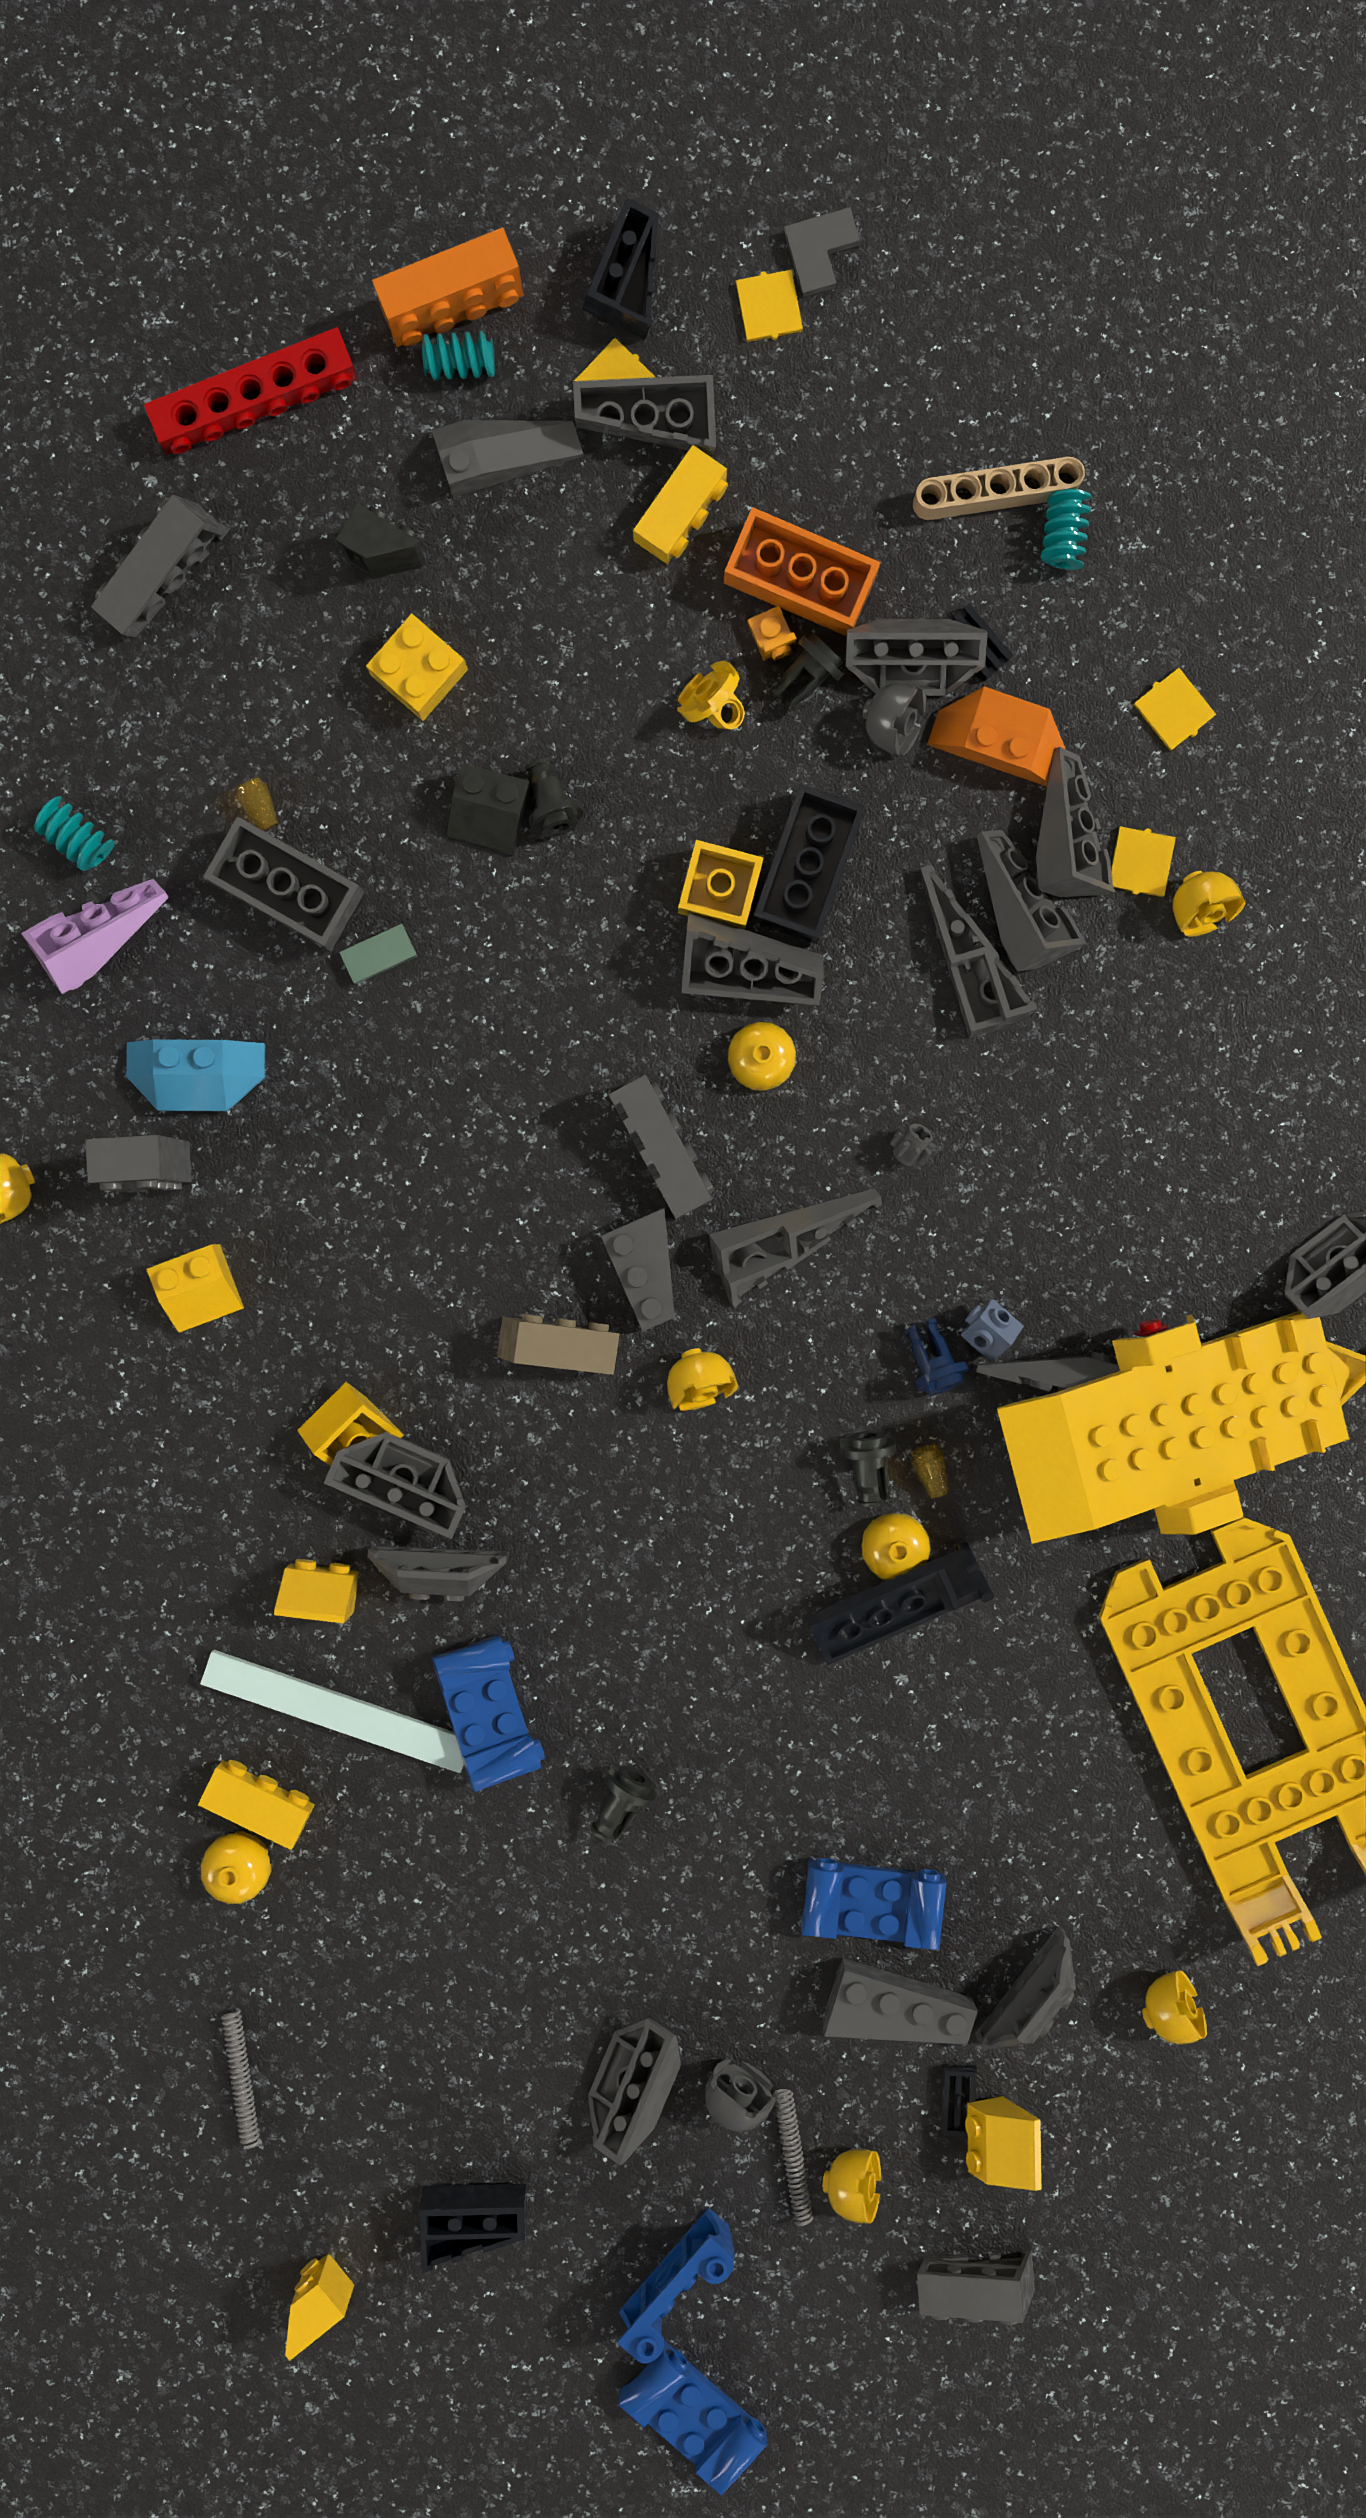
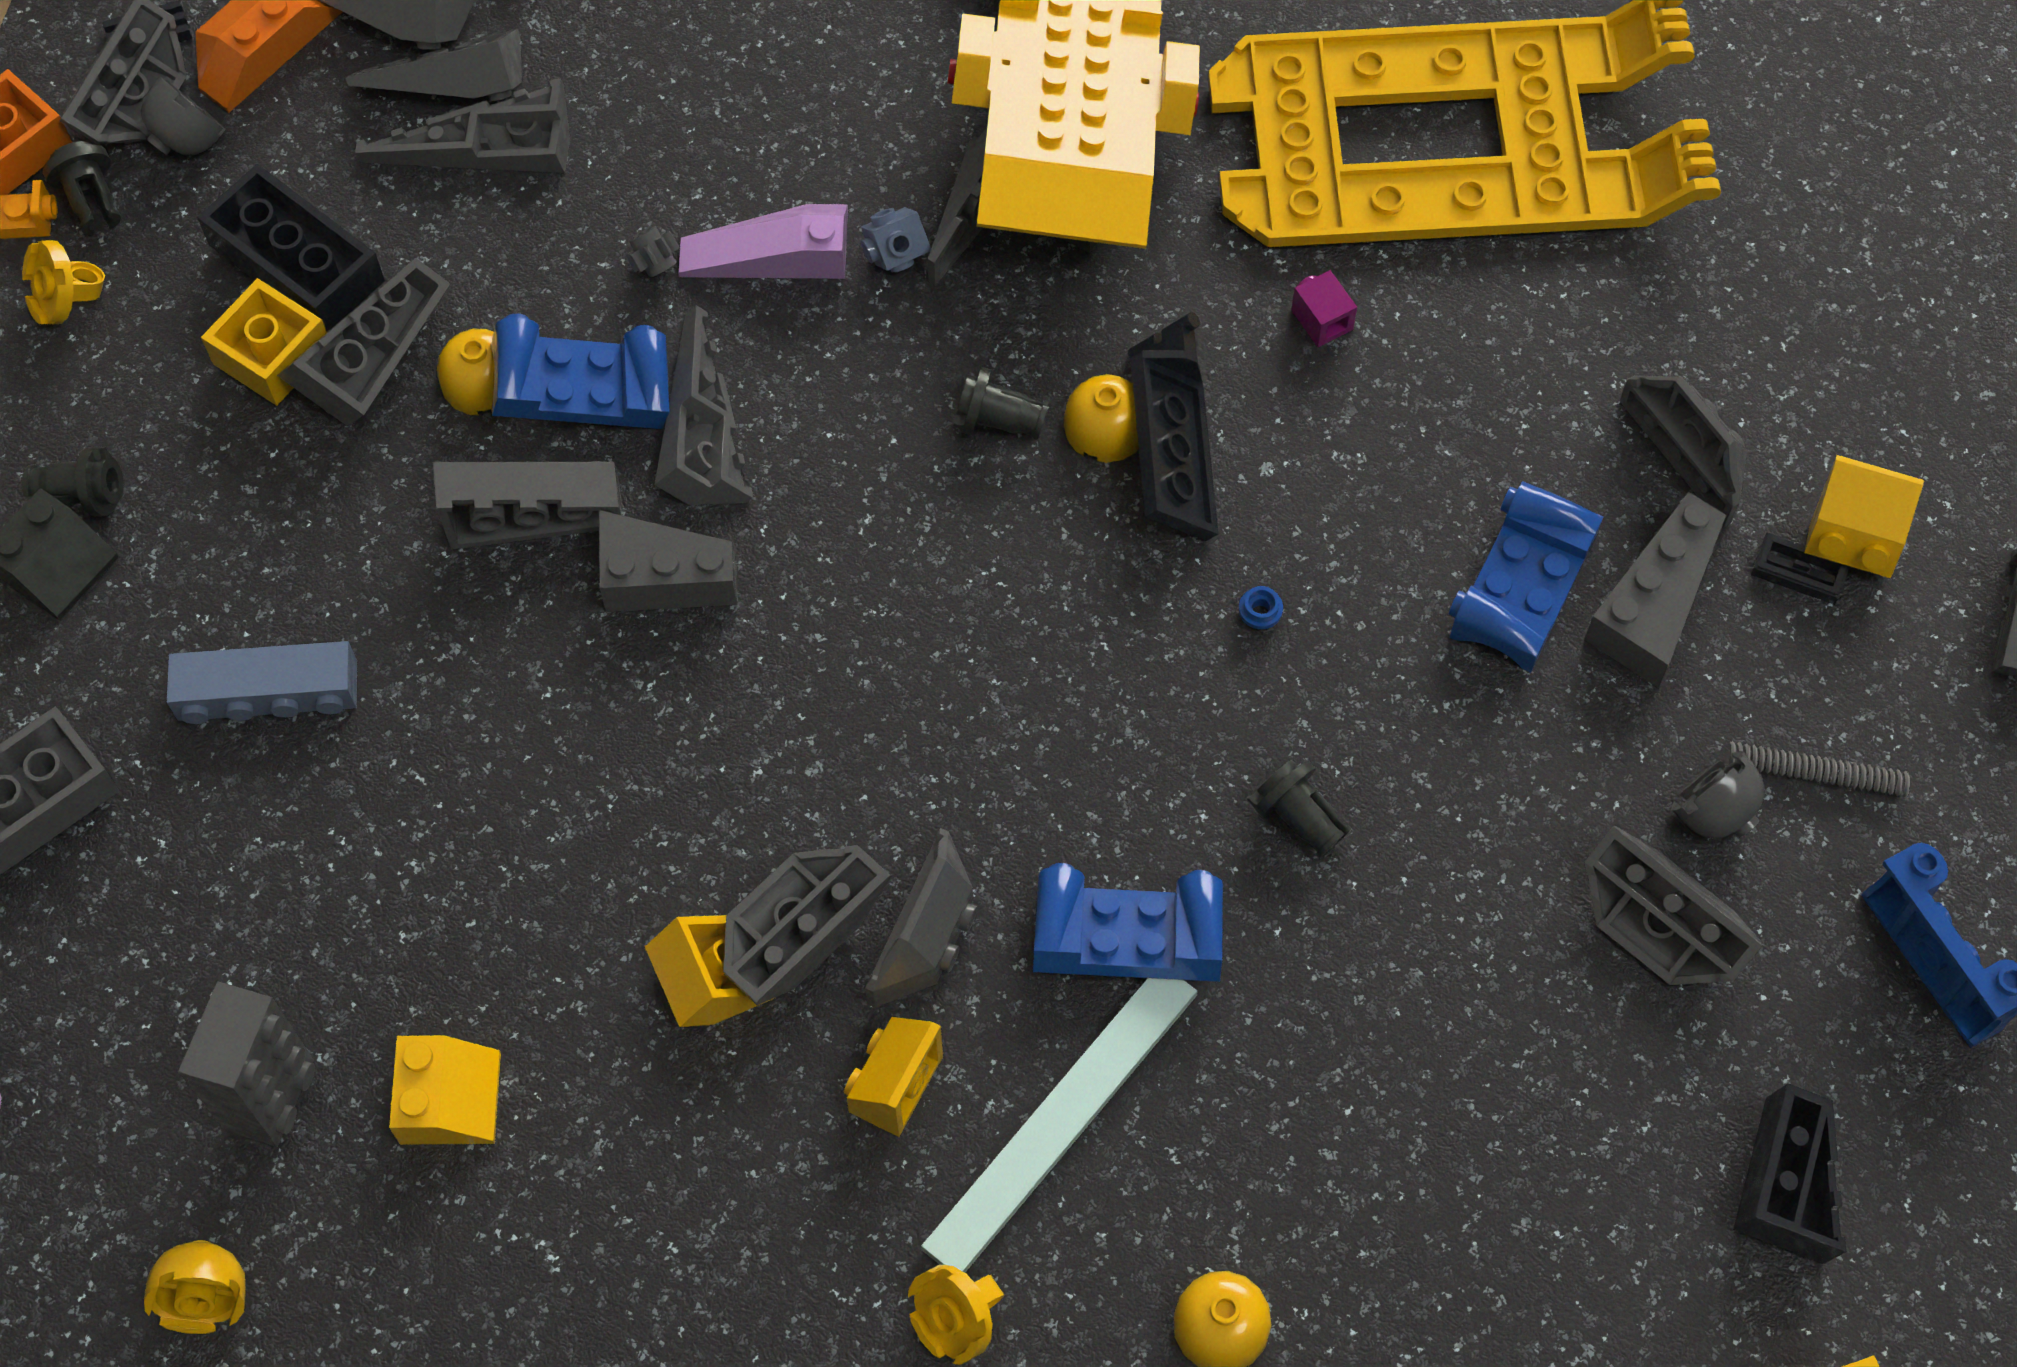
camera: 70 degrees left, 25 degrees down
(170, 1696) = (953, 1312): none -> yellow tile
(195, 1072) = (168, 997): dark azure wedge -> none
(257, 1803) = (1143, 1256): yellow brick -> none
(378, 954) = (150, 739): sand green tile -> none
(446, 1015) = (262, 681): none -> sand blue brick
(558, 1344) = (705, 688): dark tan wedge -> none
(698, 1379) = (819, 548): yellow cylinder -> none
(776, 1141) = (580, 378): none -> blue piece
(777, 1727) = (1263, 597): none -> blue plate
(853, 2185) = (1871, 703): yellow cylinder -> none
(931, 1469) = (1030, 353): clear yellow cone -> none
(940, 1372) = (904, 305): dark blue piece -> none
(963, 1237) = (783, 244): none -> lavender wedge
(1053, 1680) = (1323, 308): none -> magenta brick
(1173, 2010) = (1752, 303): yellow cylinder -> none

